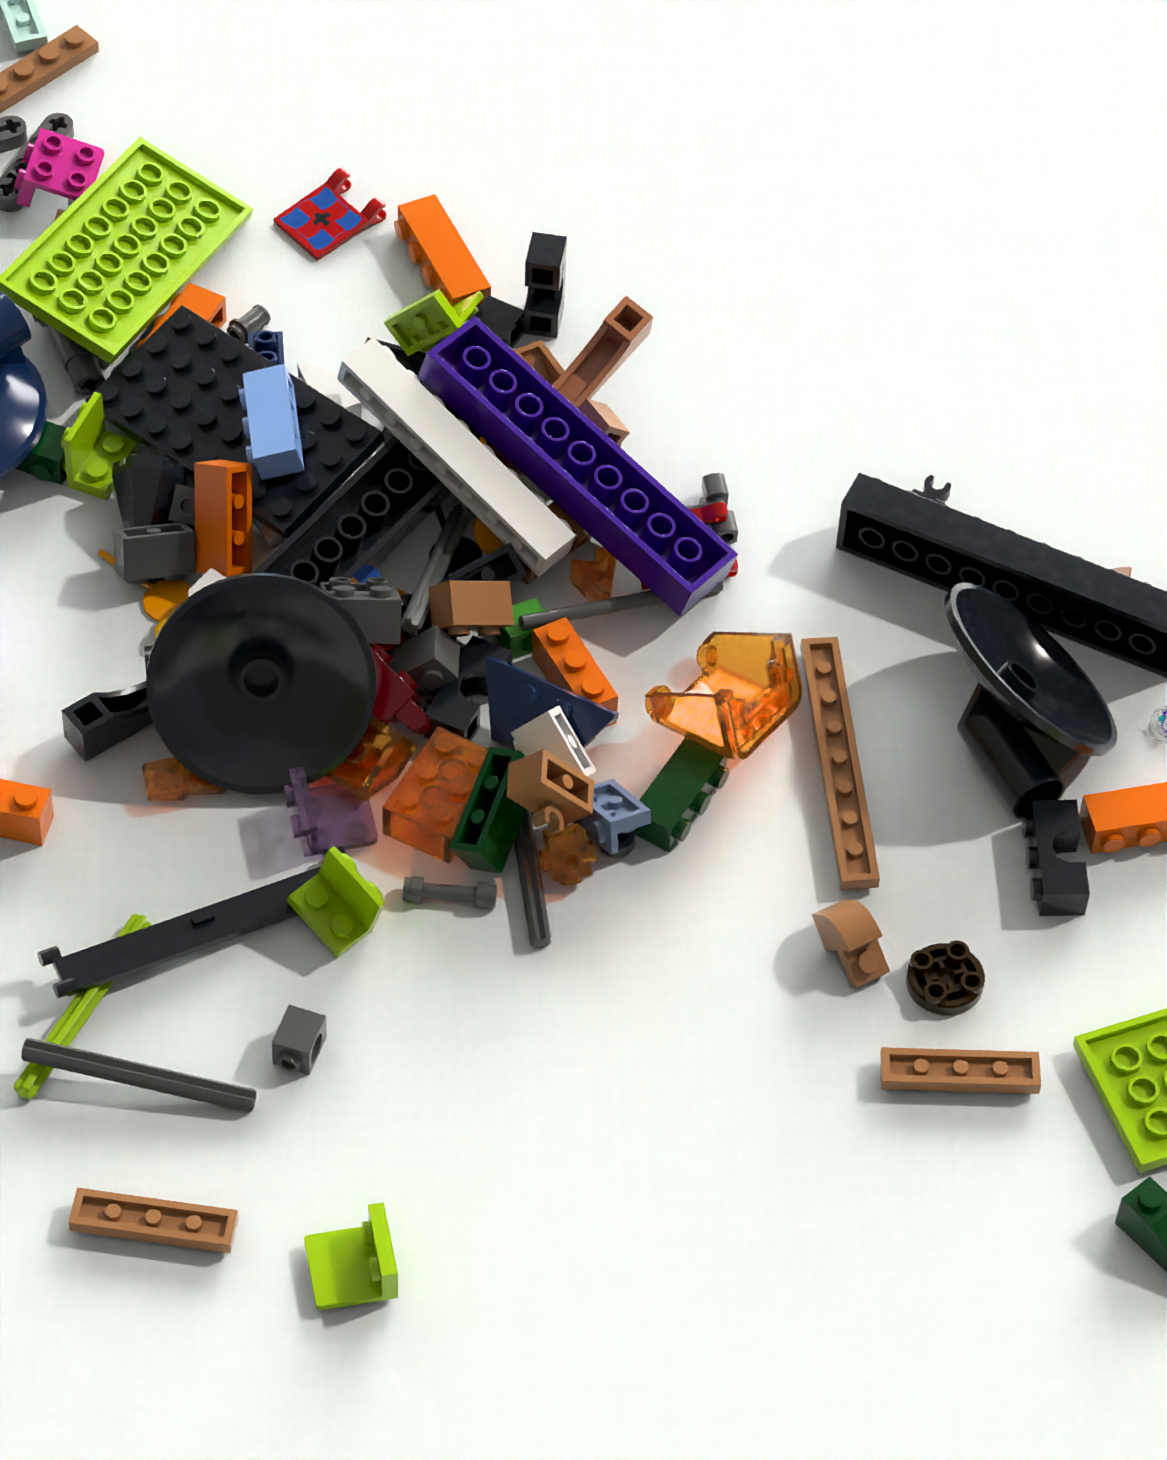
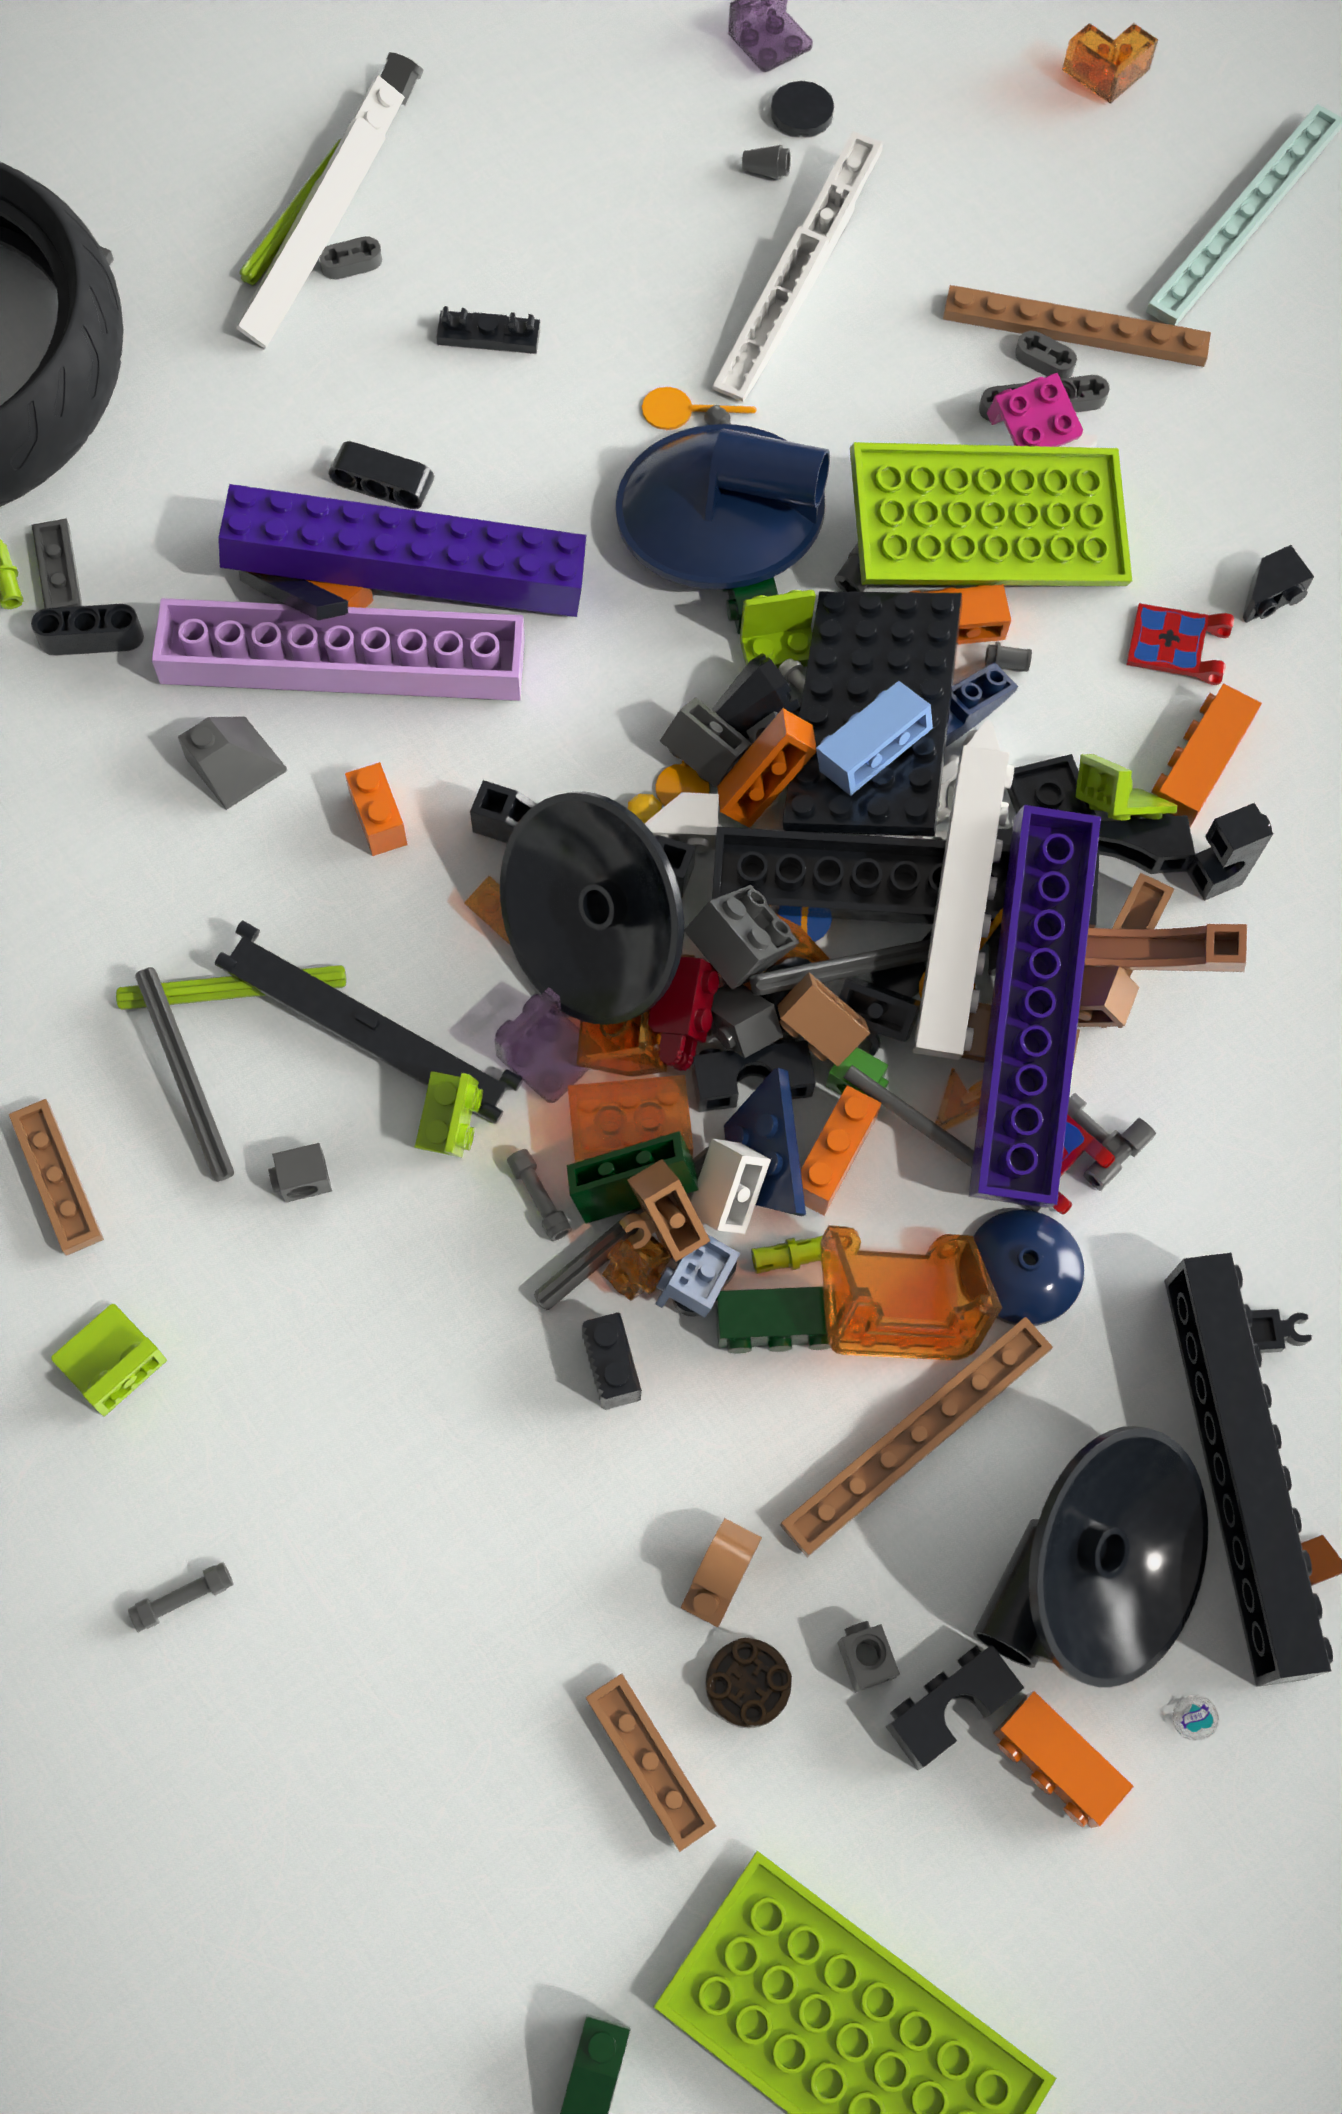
camera: 55 degrees right, 15 degrees up
(335, 125) = (1277, 581): none -> black slope
(592, 1345) = (146, 1613): none -> dark grey bar
(630, 917) = (611, 1361): none -> black brick
(634, 754) = (786, 1254): none -> lime pin
(738, 604) = (1024, 1290): none -> dark blue dish
(986, 901) = (860, 1674): none -> dark grey brick

